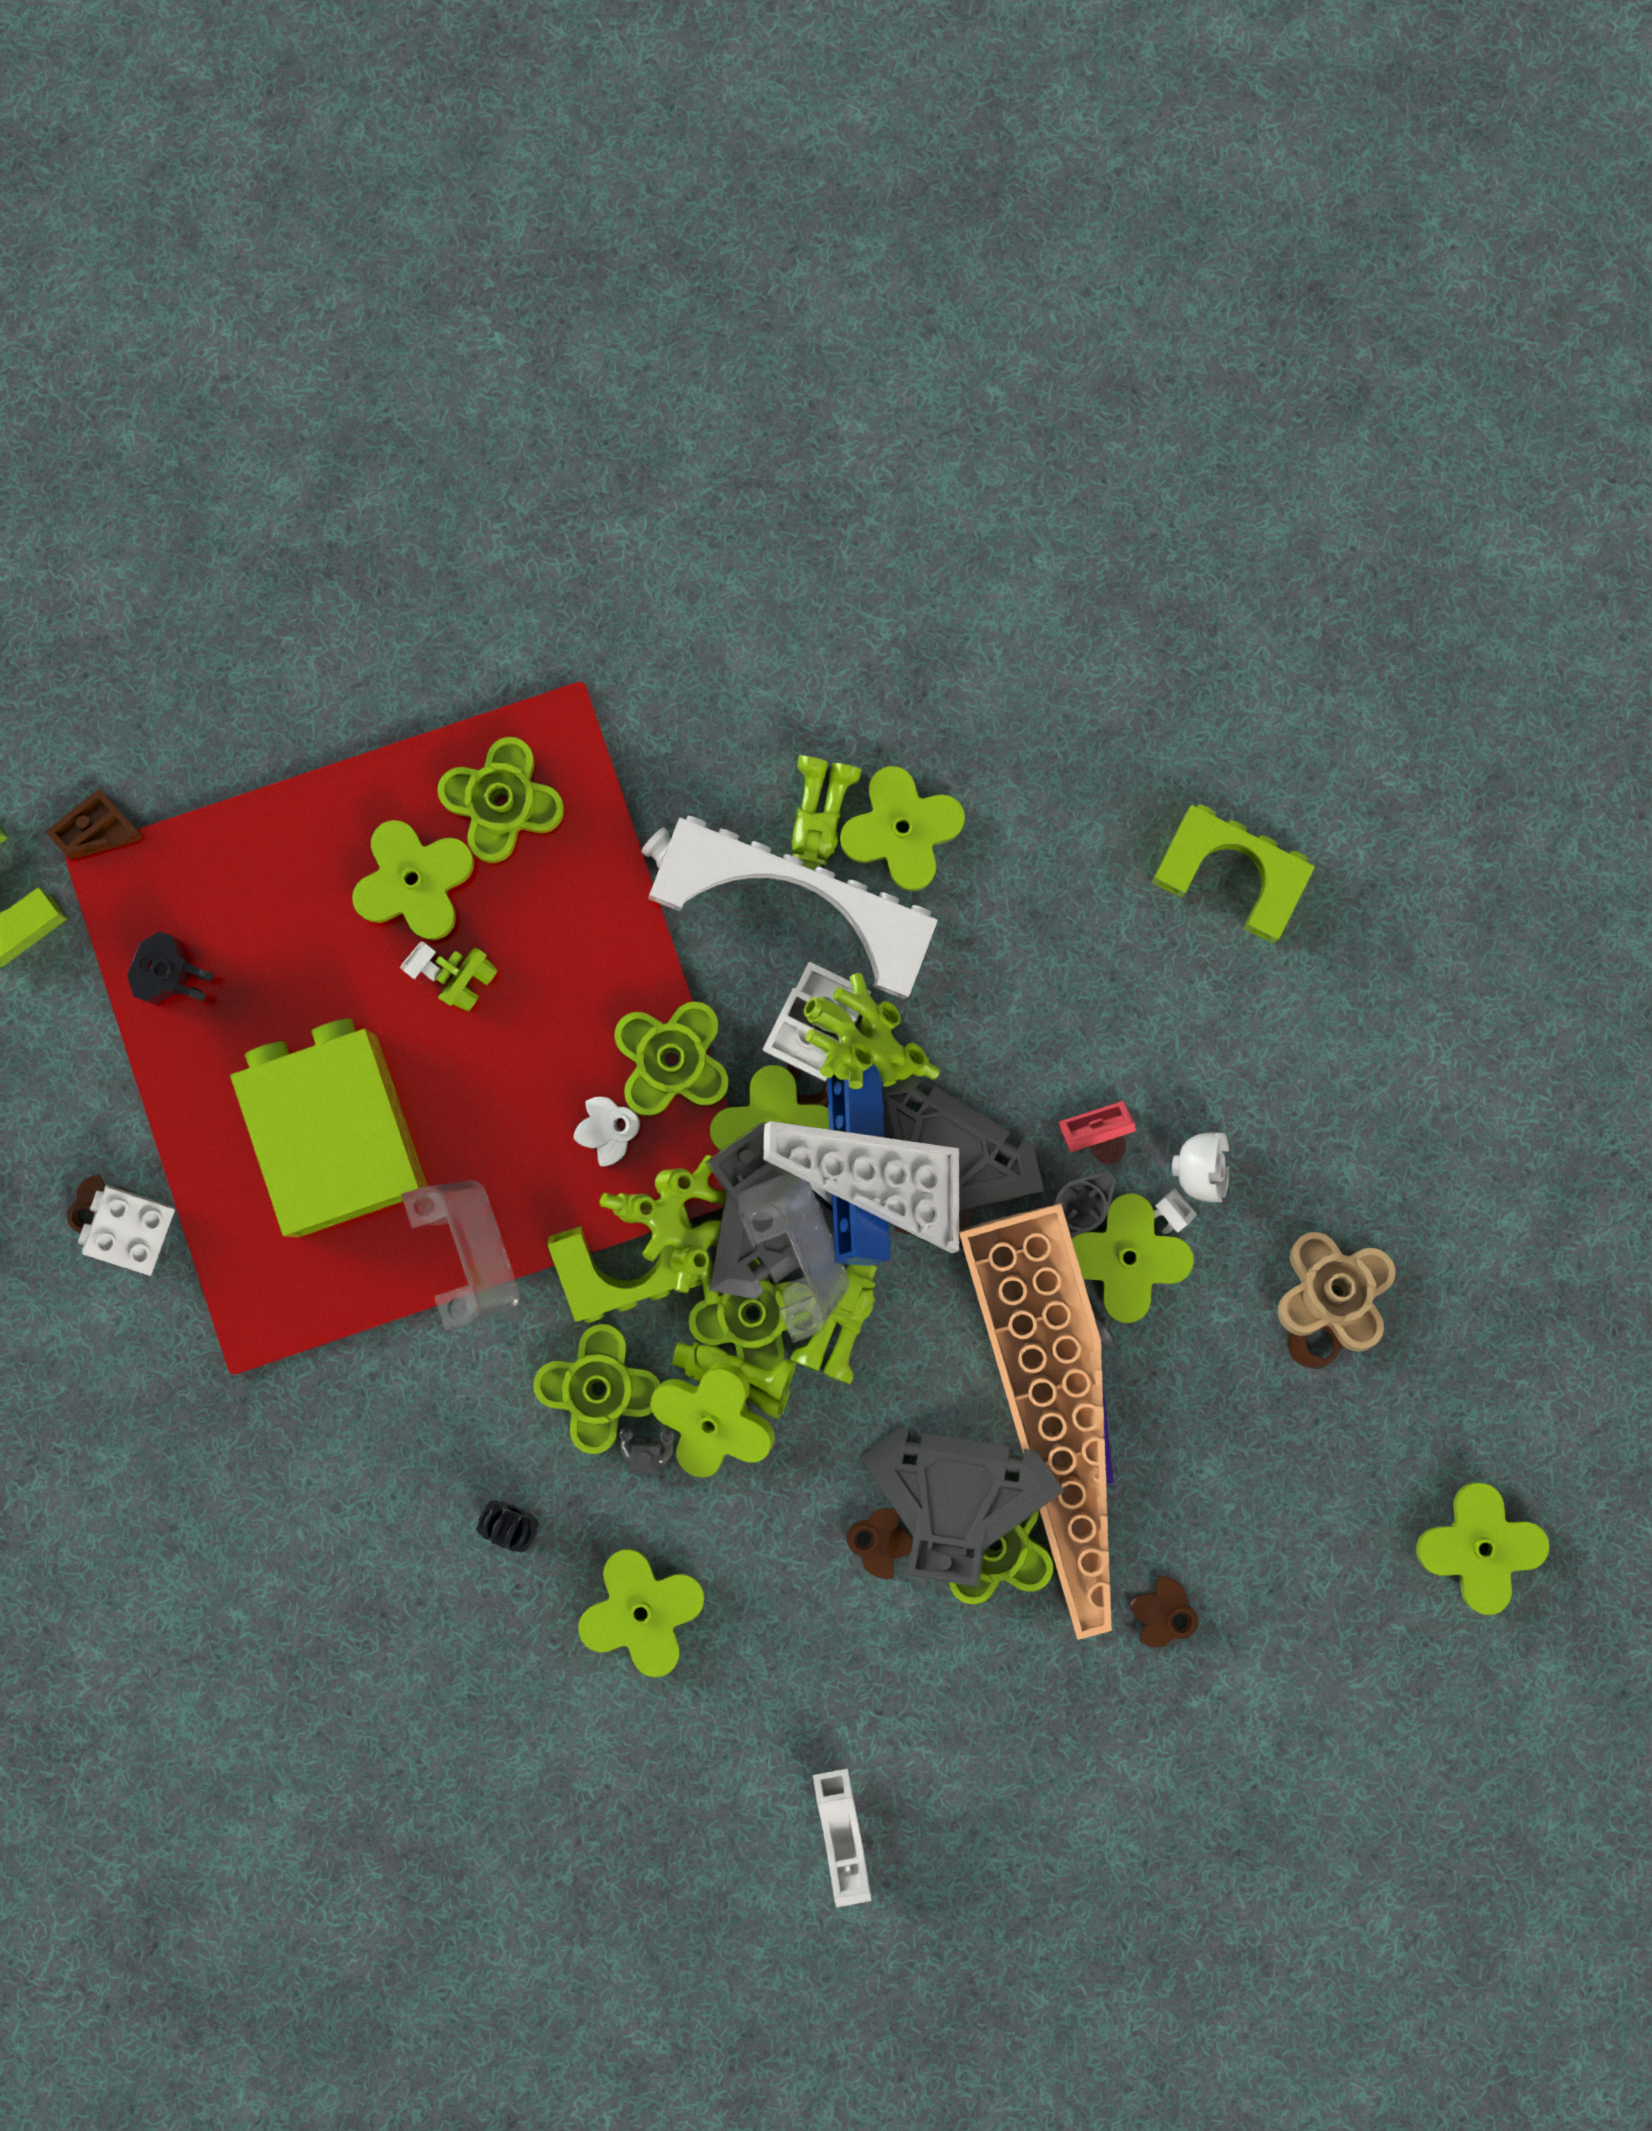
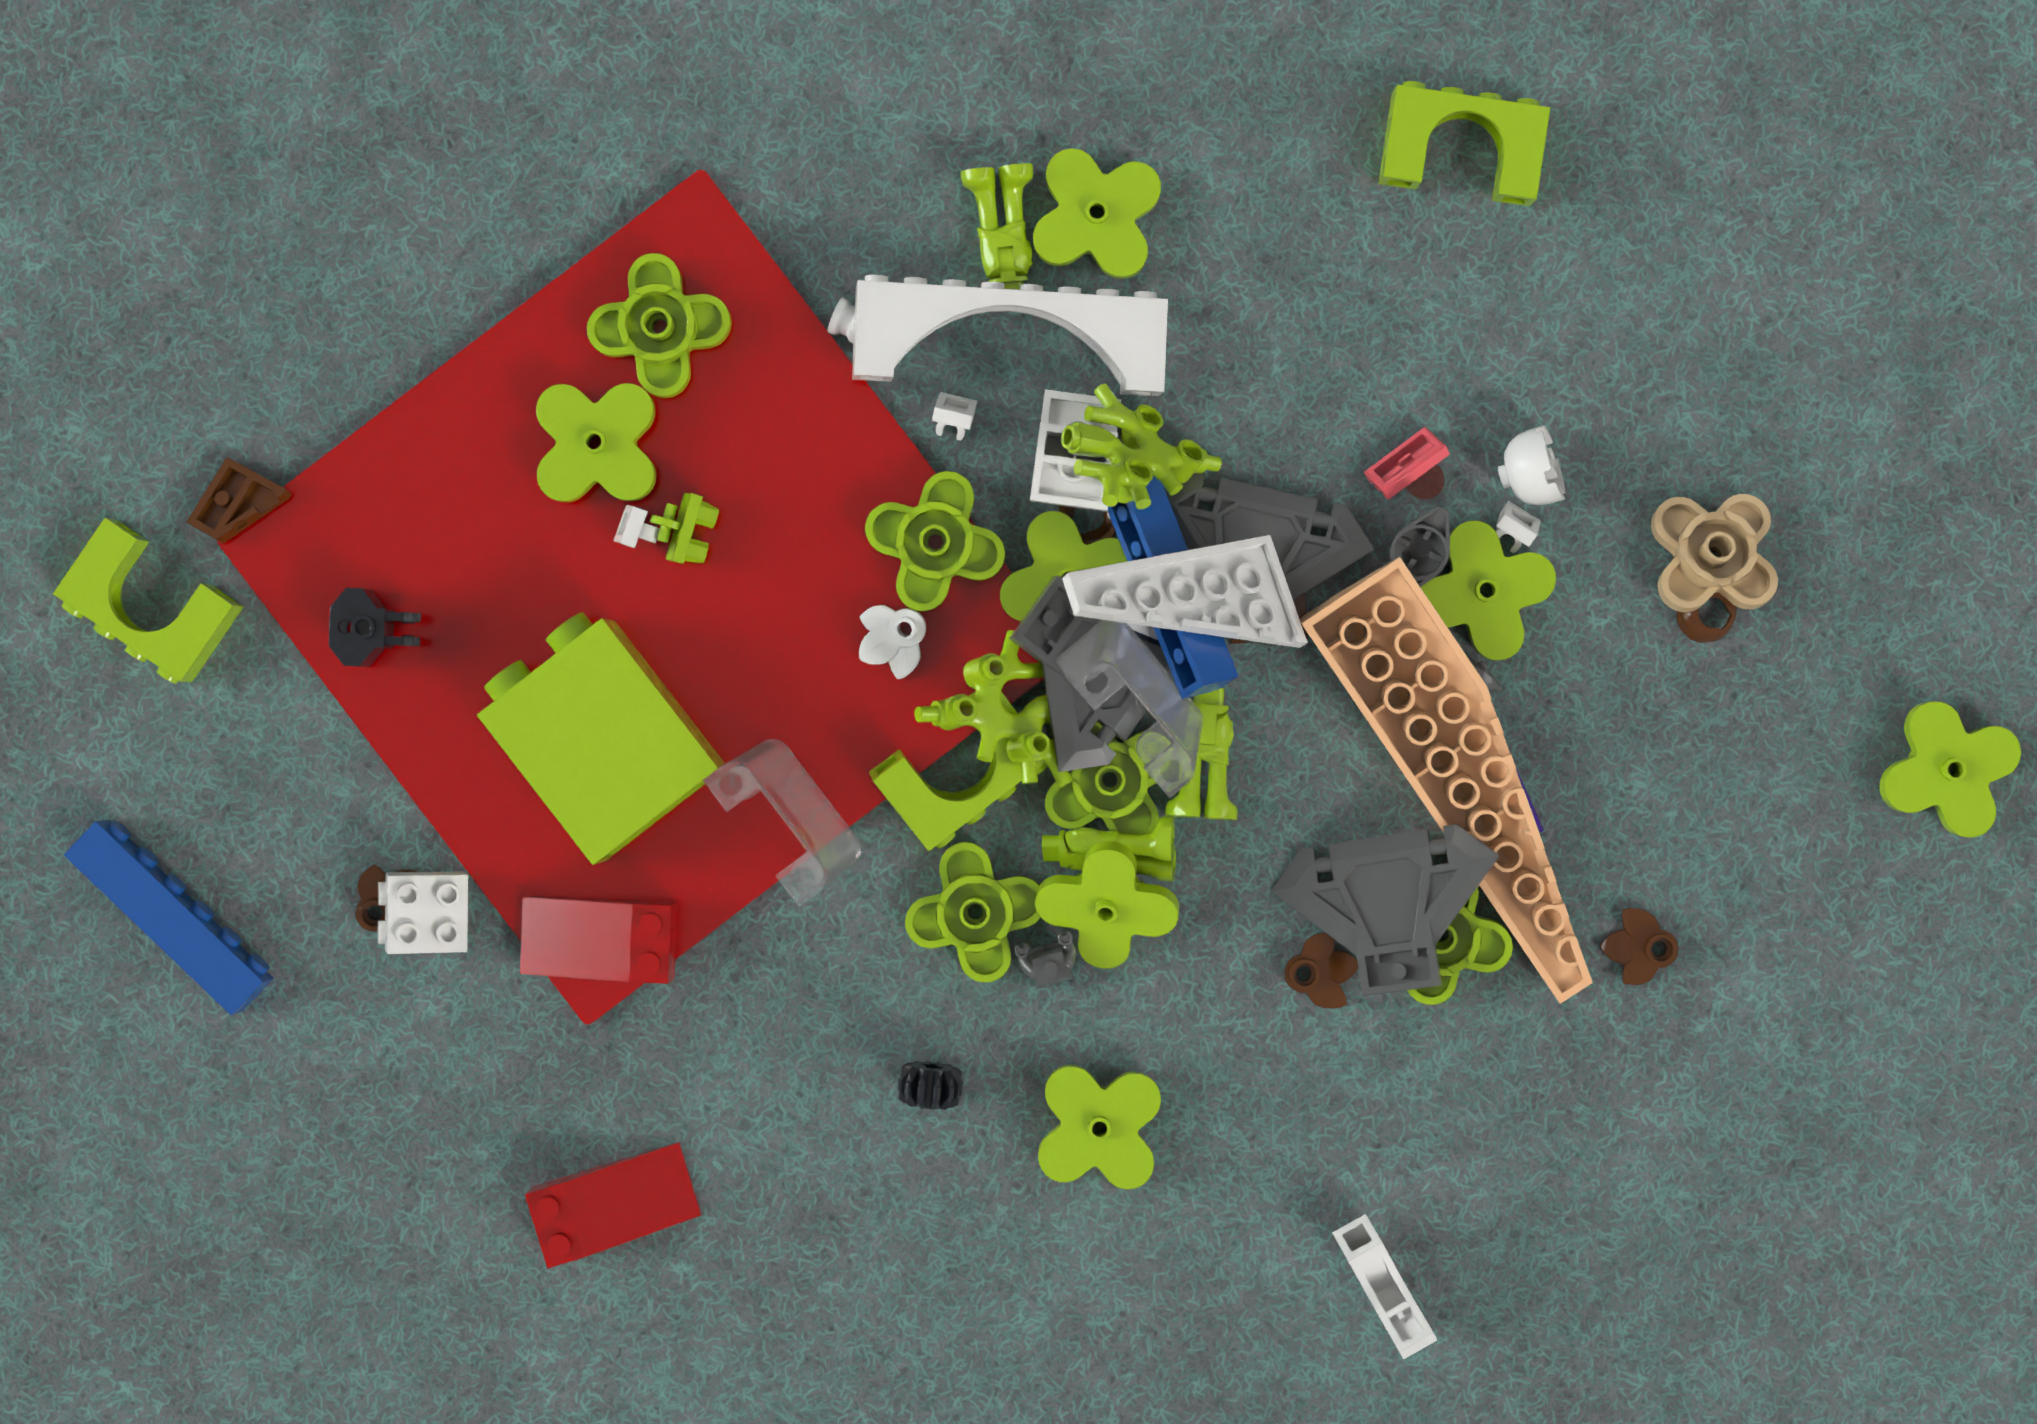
camera: 20 degrees left, 5 degrees up
(197, 1538) = (612, 1204): none -> red slope
(267, 1303) = (599, 939): none -> slope
(725, 954) = (955, 412): none -> white tile

